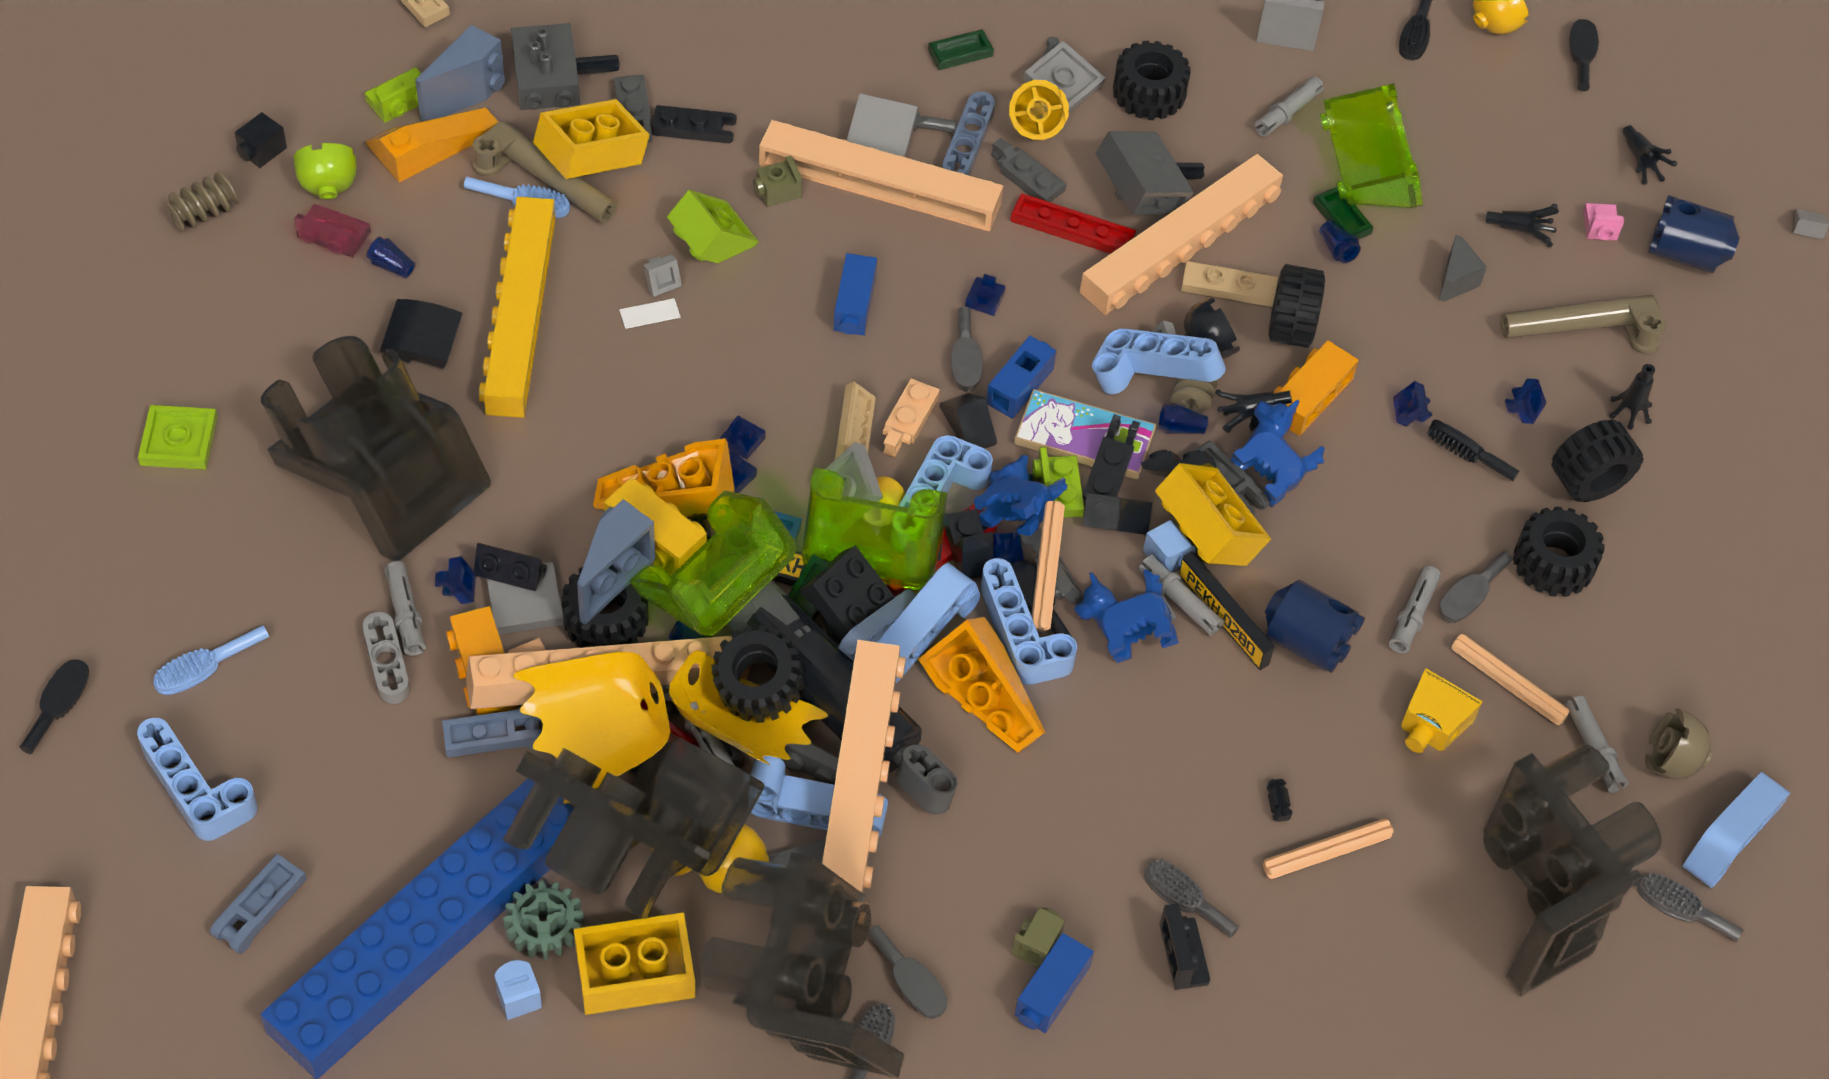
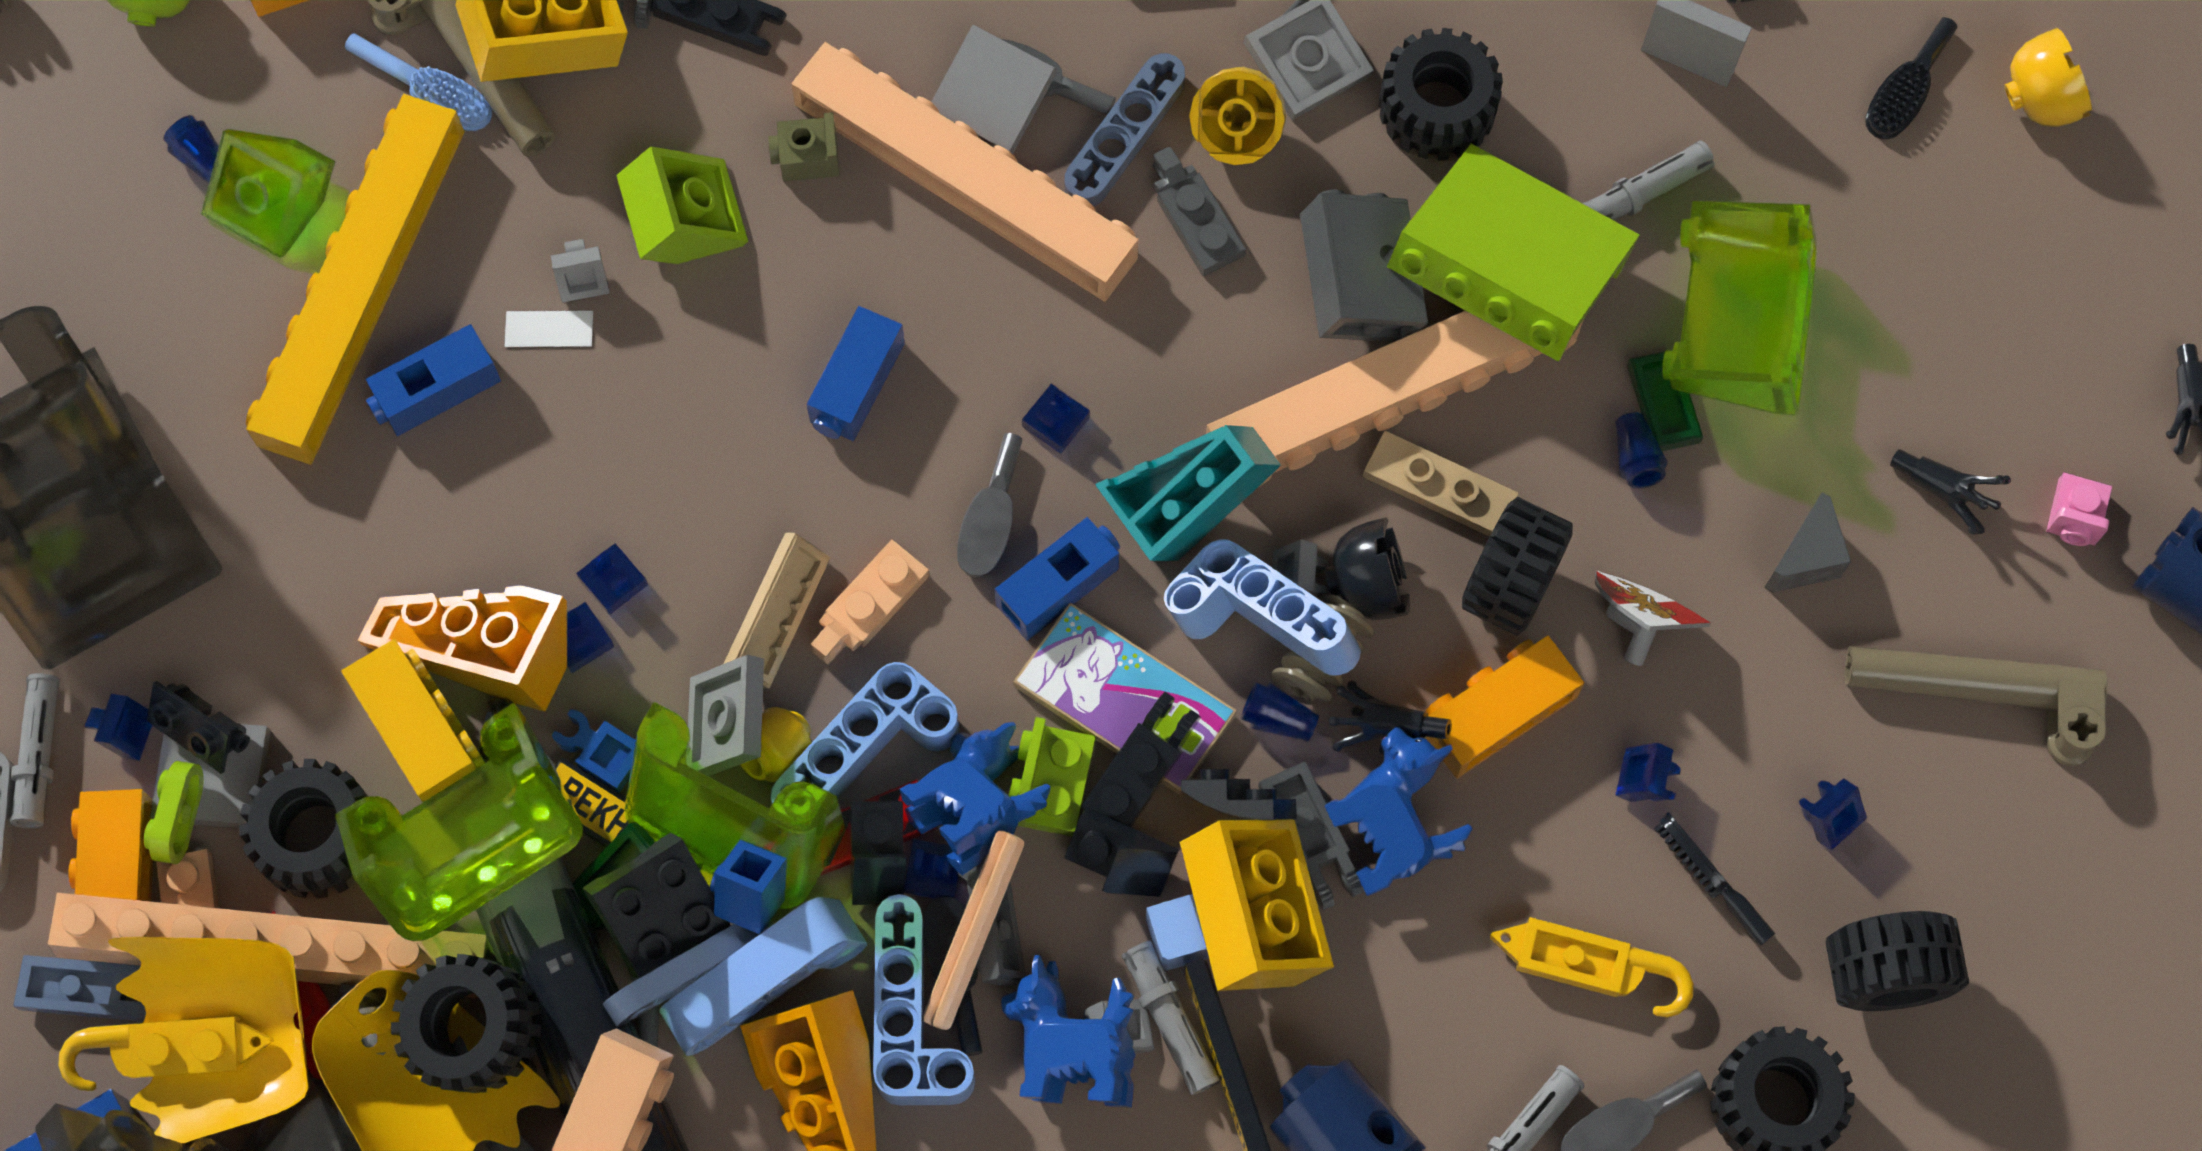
camera: 20 degrees right, 15 degrees up
(332, 230) = (130, 84): clear pink bracket -> none
(421, 331) = (200, 290): black slope -> none
(442, 268) = (266, 188): none -> clear neon green slope
(513, 603) = (178, 804): none -> lime plate
(576, 734) = (165, 1048): none -> yellow plate
(590, 350) = (431, 381): none -> blue brick
(617, 553) = (311, 779): sand blue slope -> none
(903, 565) = (749, 886): none -> blue brick
(970, 419) = (956, 634): black slope -> none
(1070, 224) = (1232, 322): red tile -> none
(1088, 304) = (1190, 490): none -> teal wedge
(1229, 146) = (1512, 251): none -> lime panel
(1378, 329) = (1643, 613): none -> shield
(1417, 509) = (1591, 961): none -> yellow plate
(1583, 48) = (2167, 183): black piece -> none
(1637, 395) = (2007, 855): black piece -> none

